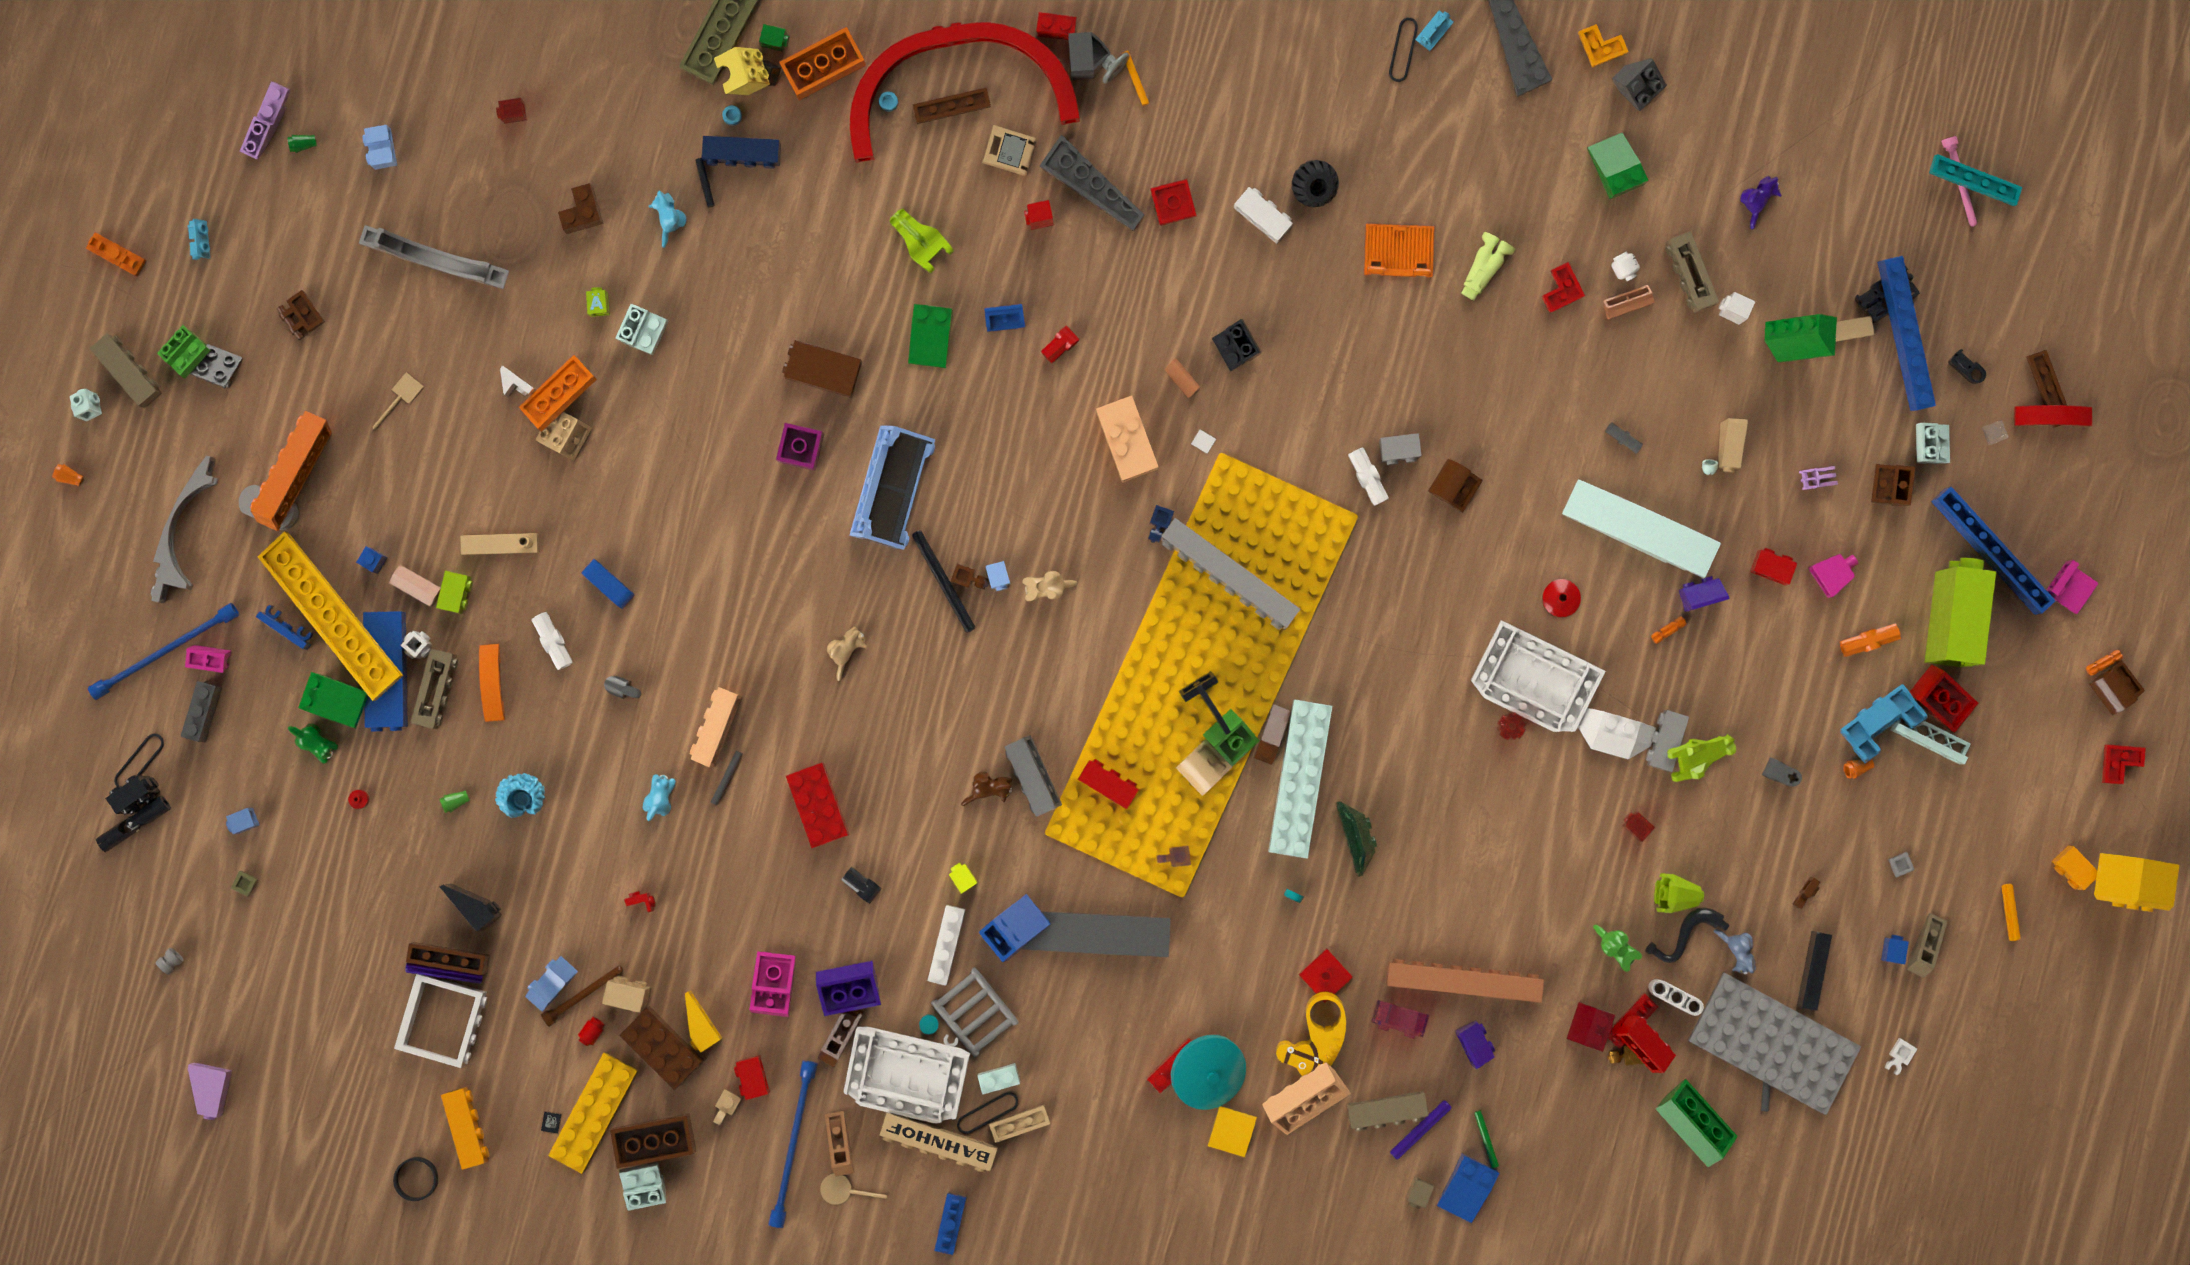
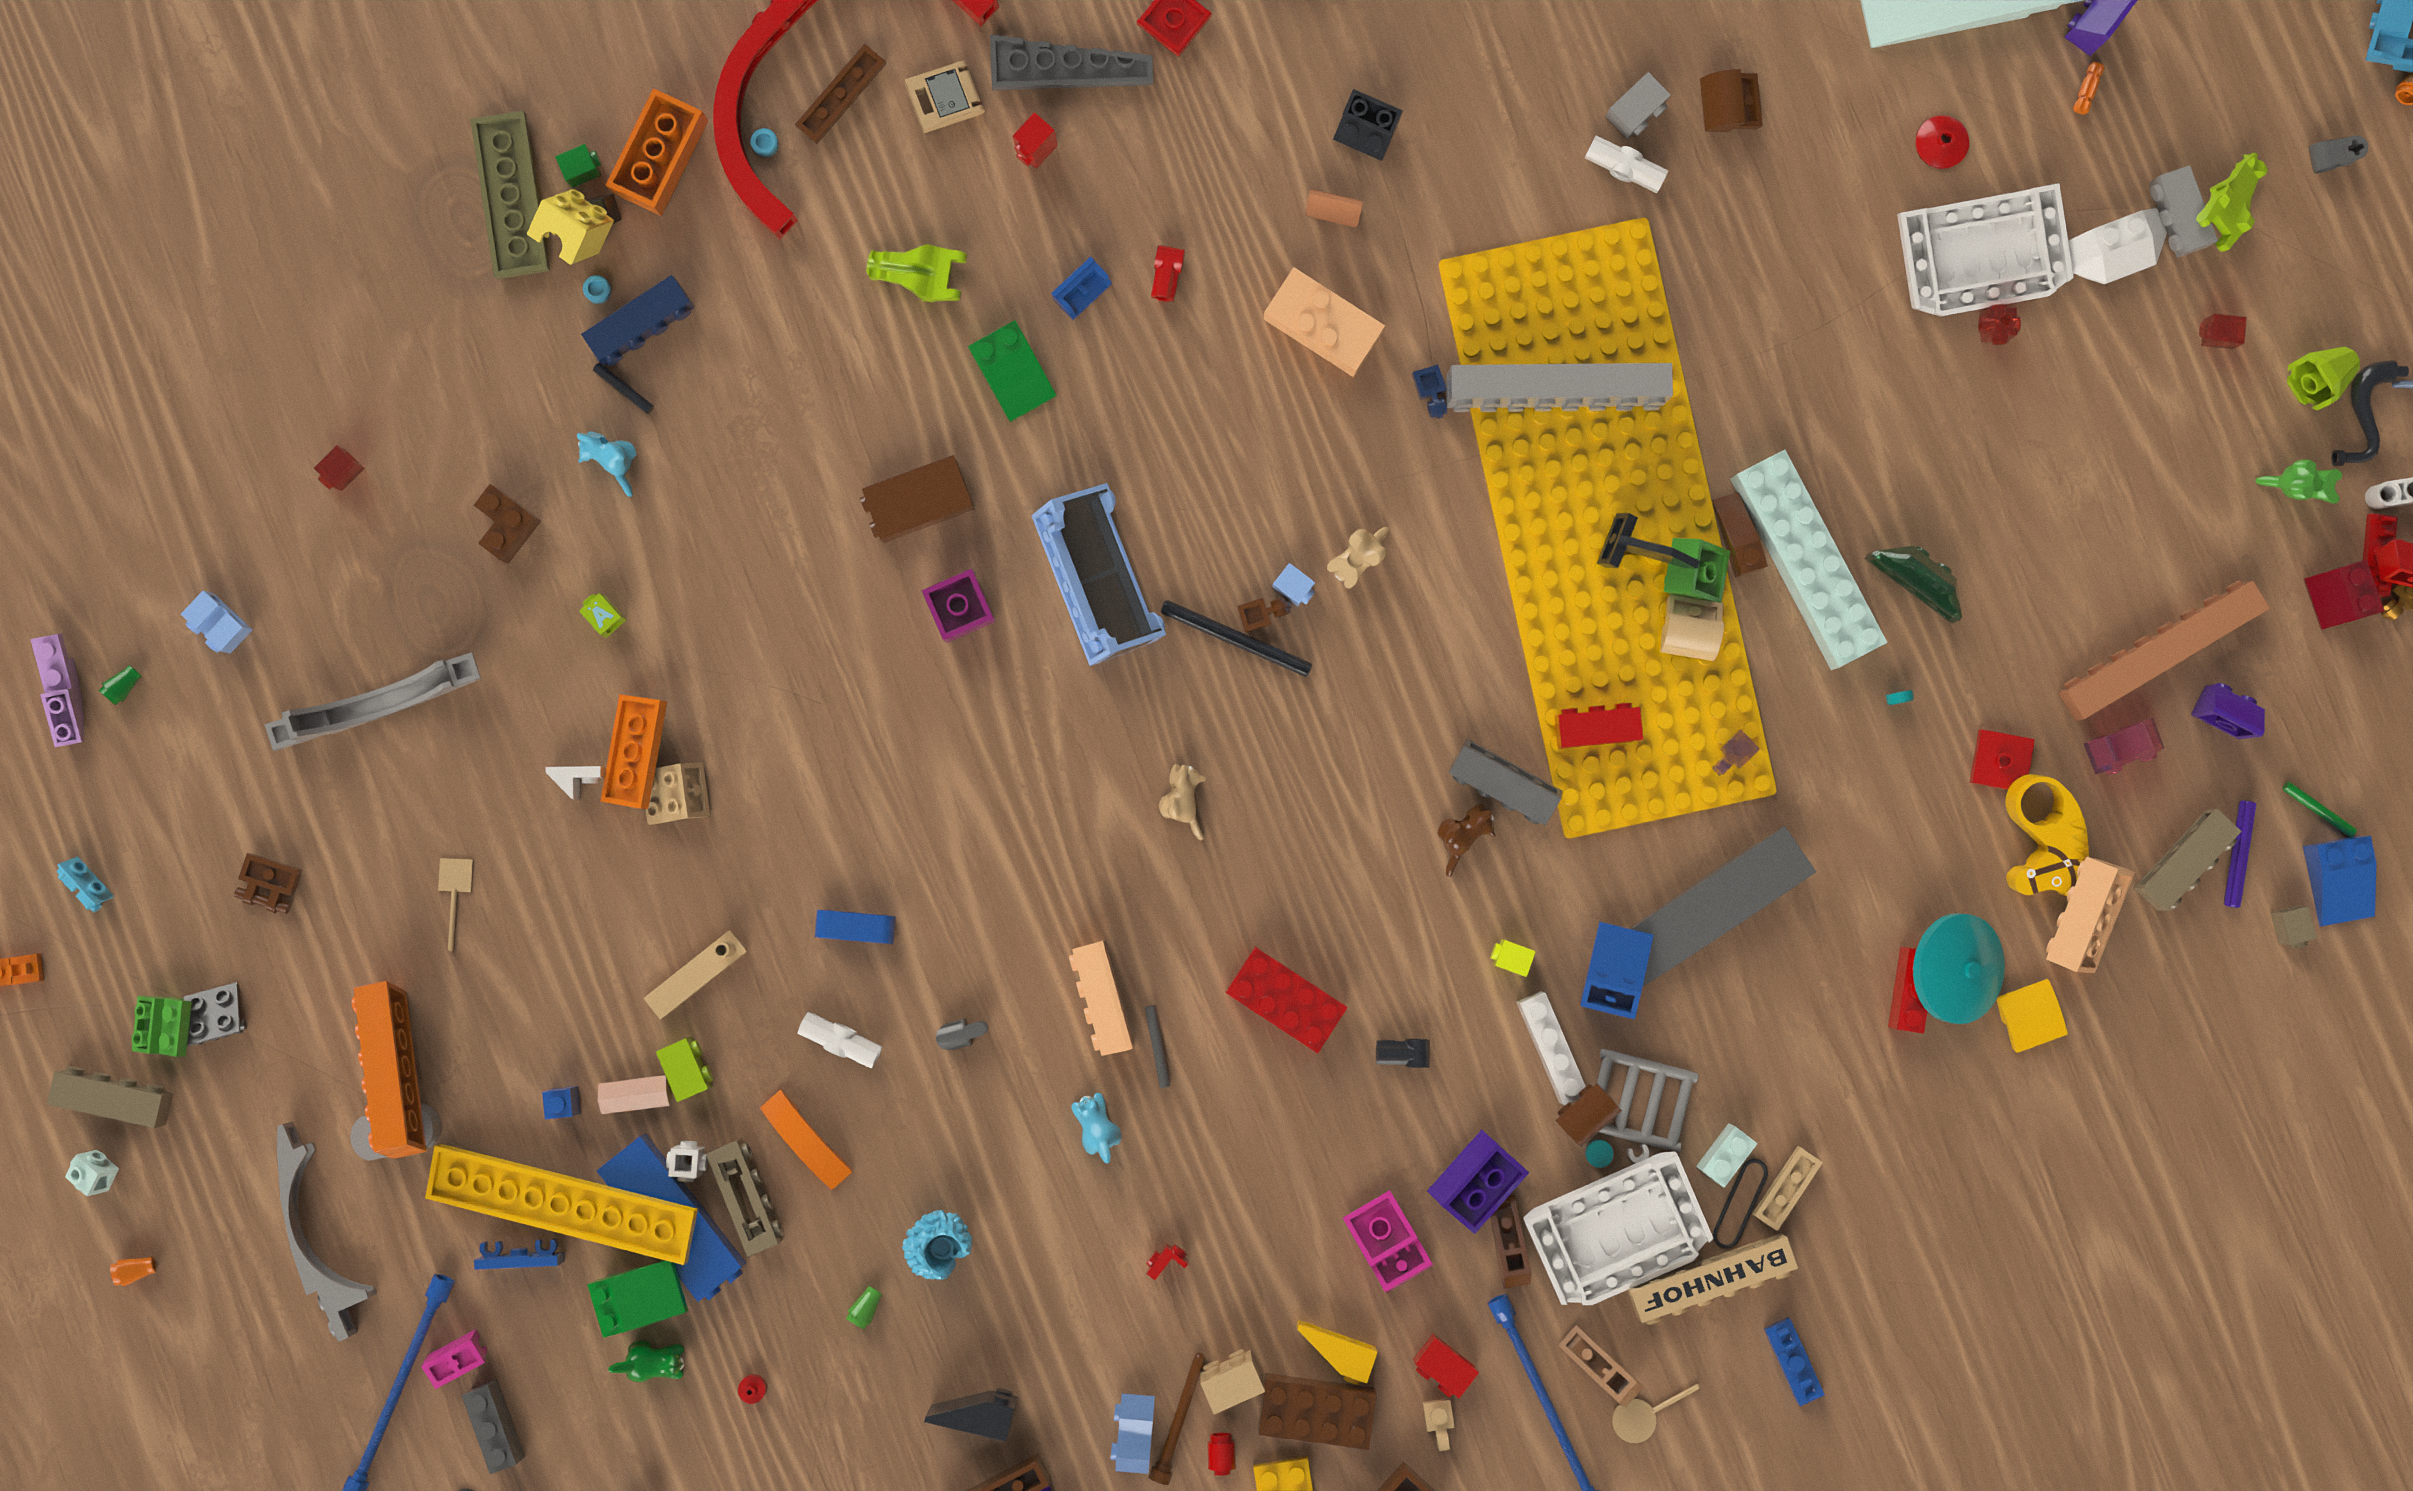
camera: 45 degrees left, 0 degrees up
(641, 329) = (676, 607): light aqua brick -> none
(936, 994) = (1587, 1114): none -> reddish brown brick
(1203, 441) = (1410, 263): white sticker -> none

